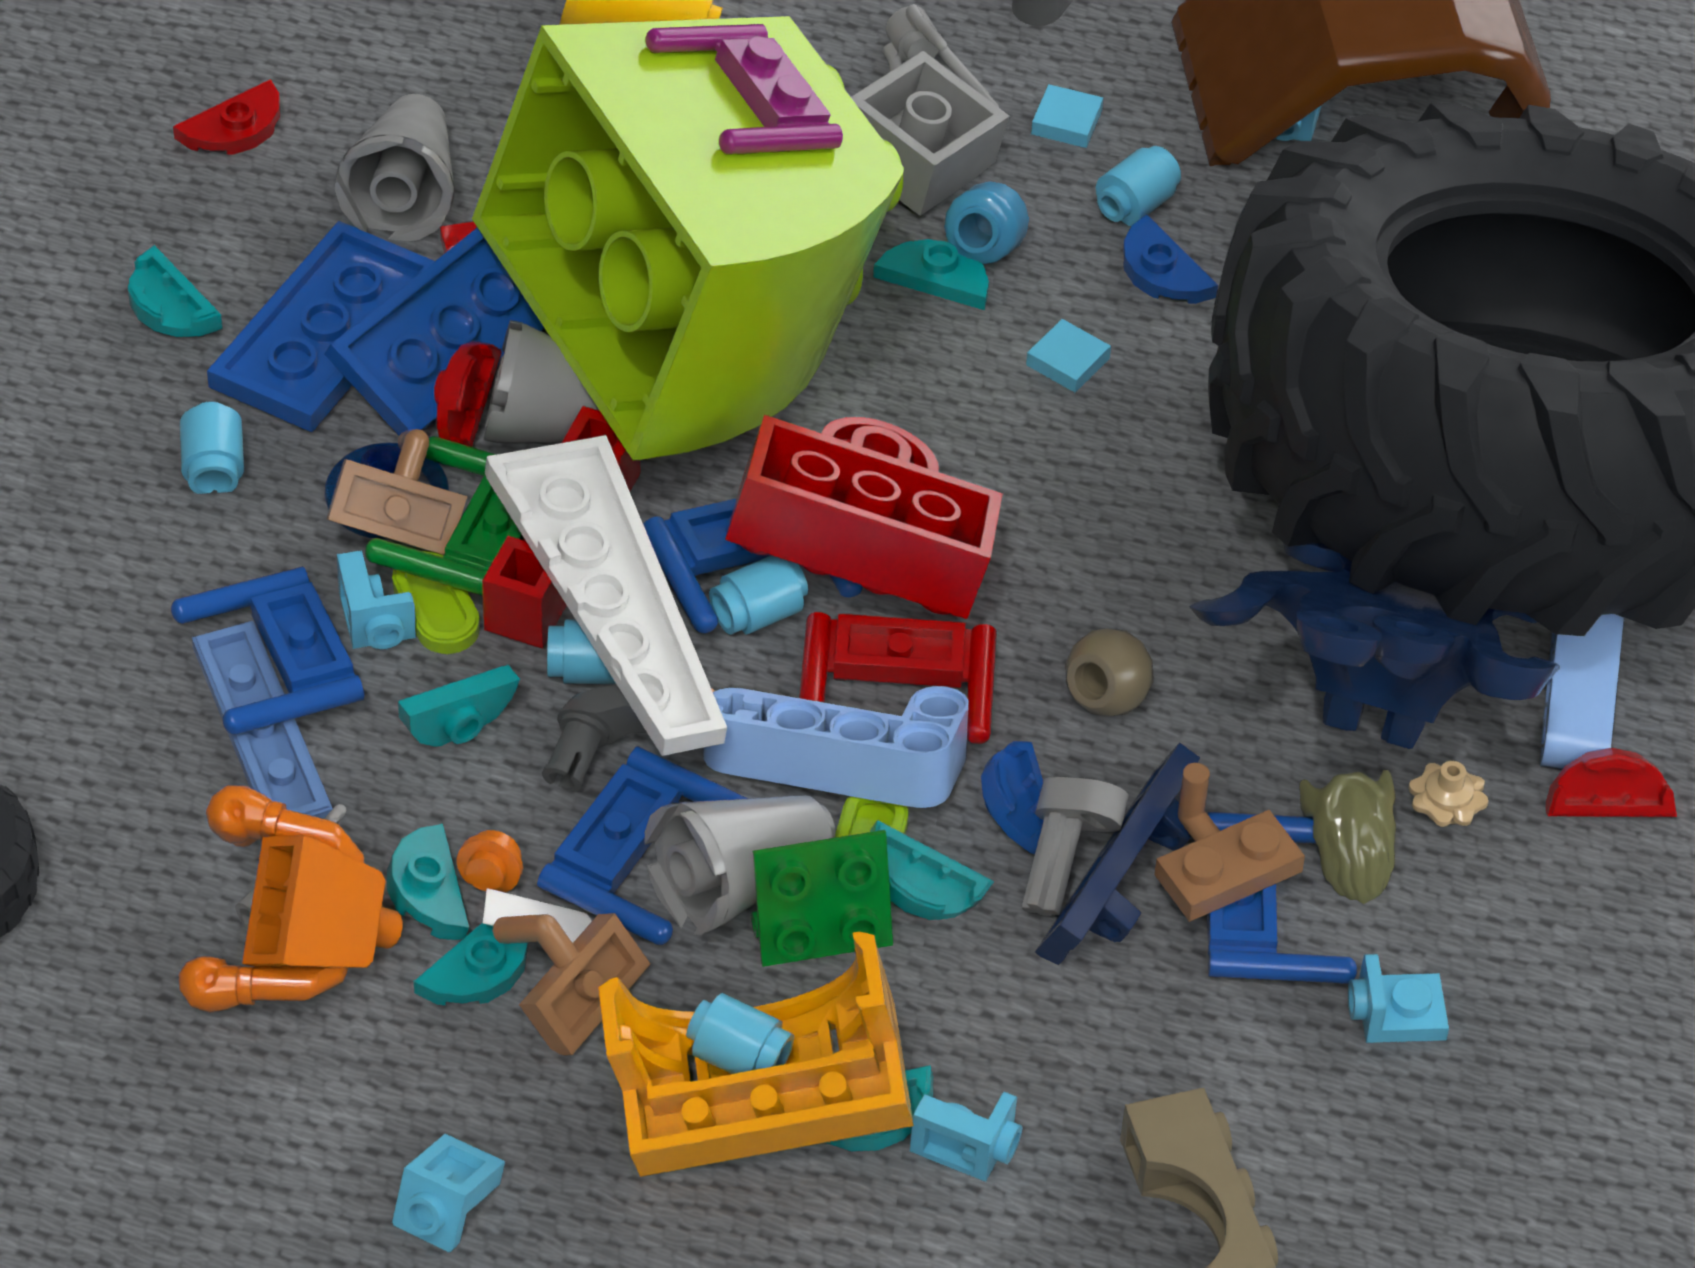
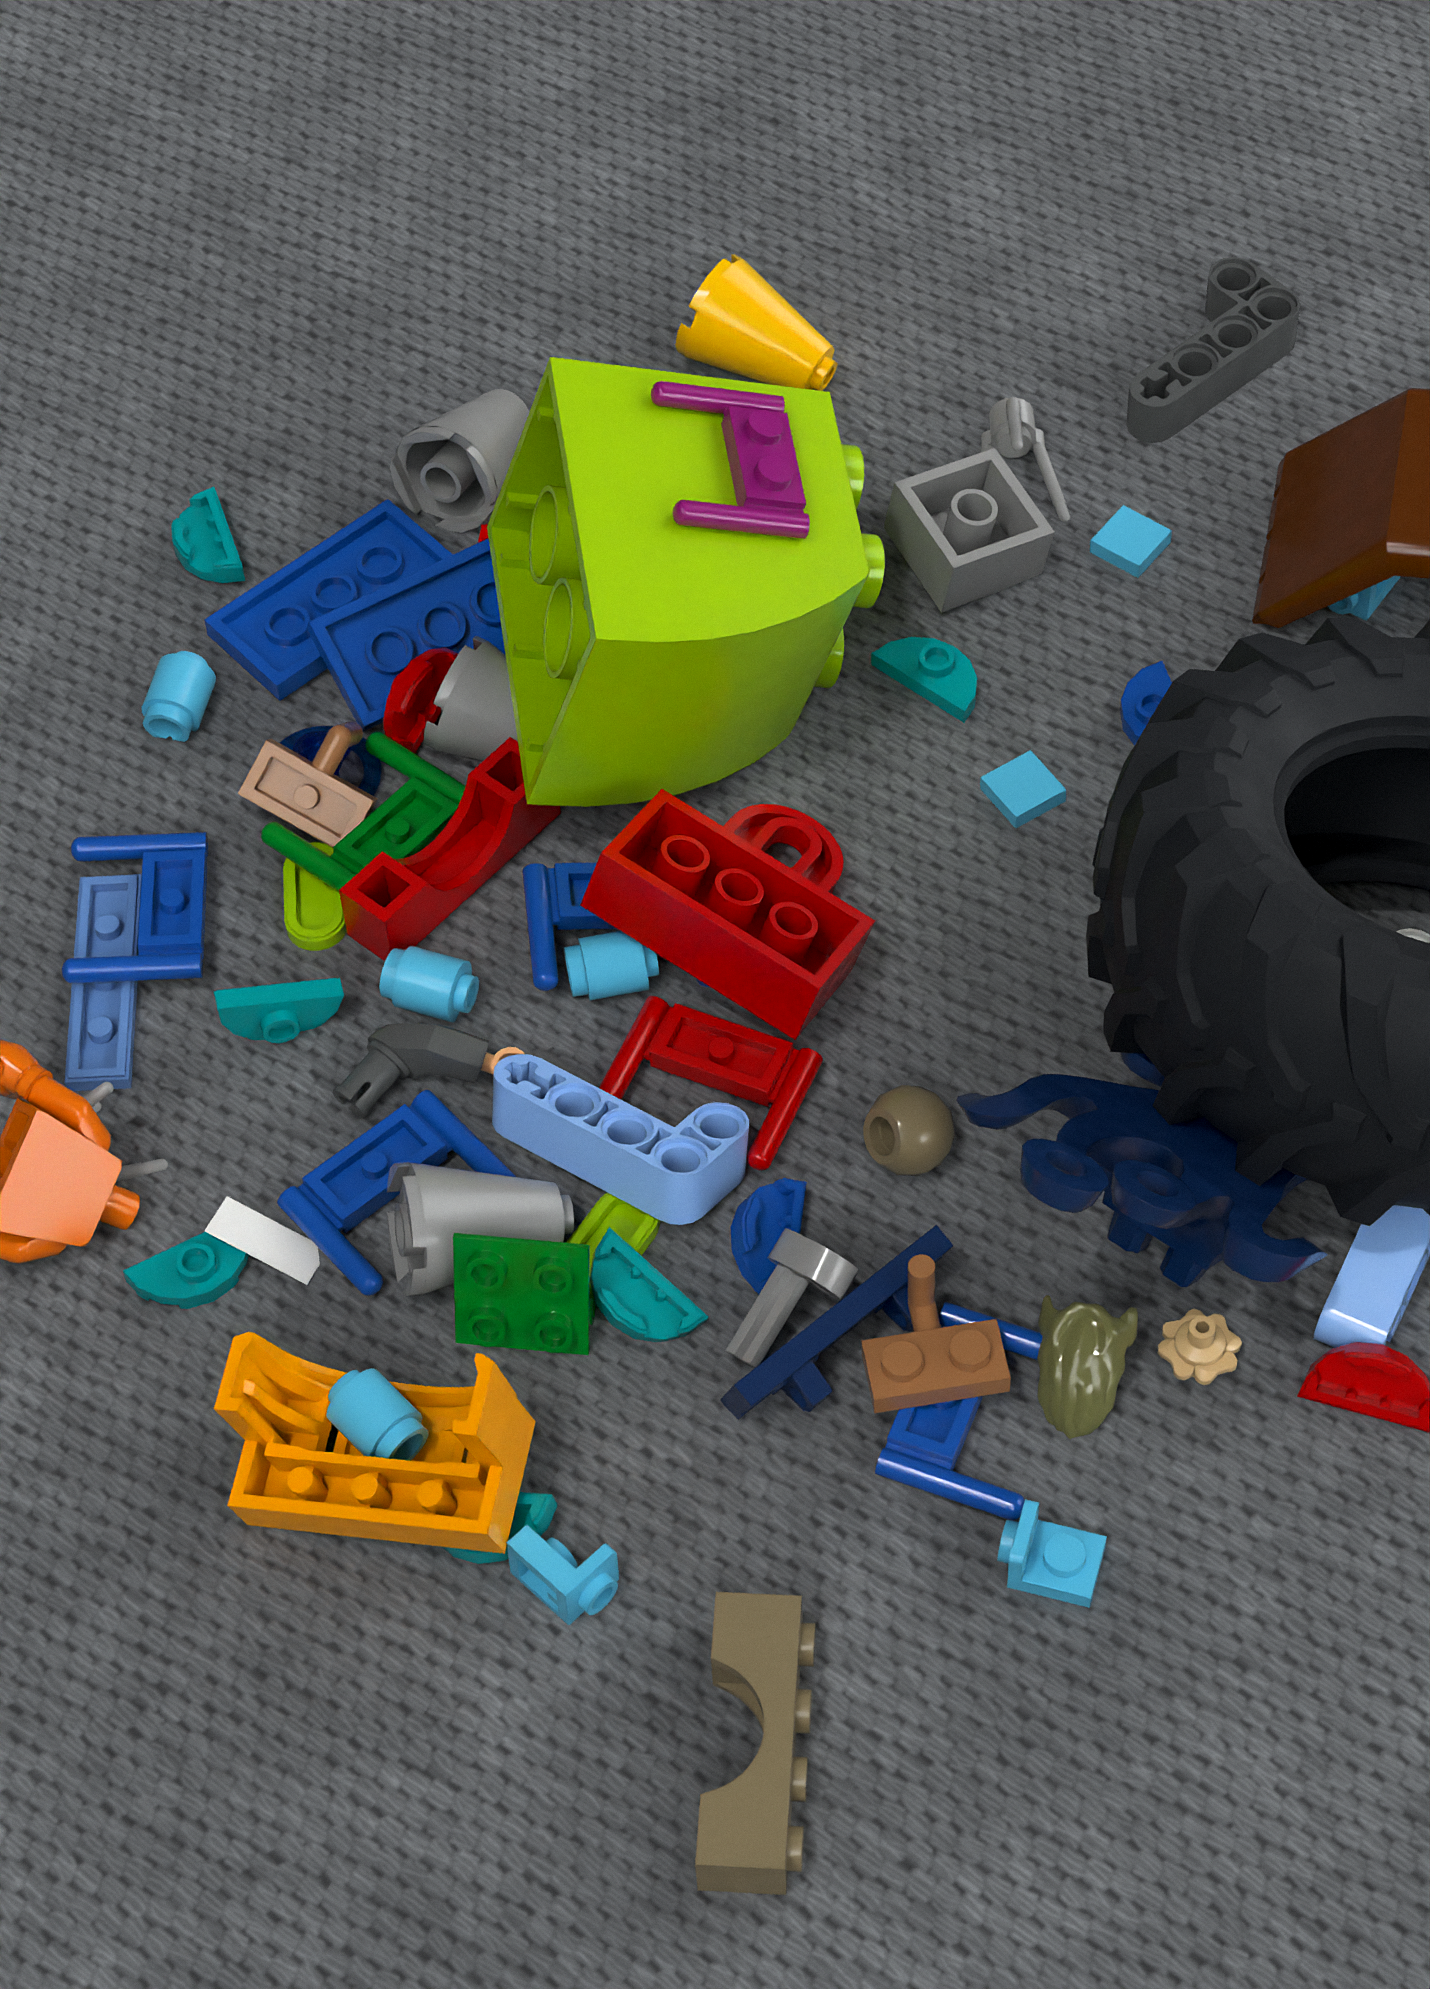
camera: 25 degrees right, 5 degrees up
(235, 123) = (345, 382): red plate -> none
(369, 614) = (243, 886): medium azure bracket -> none
(425, 883) = (178, 1174): teal plate -> none
(443, 1188) = (56, 1485): medium azure bracket -> none
(490, 861) = (244, 1170): orange plate -> none
(567, 998) = (278, 1308): medium nougat plate -> none
(601, 561) = (451, 885): white wing -> none
(987, 222) = (995, 635): dark azure head -> none
(1138, 185) = (1164, 628): medium azure brick -> none

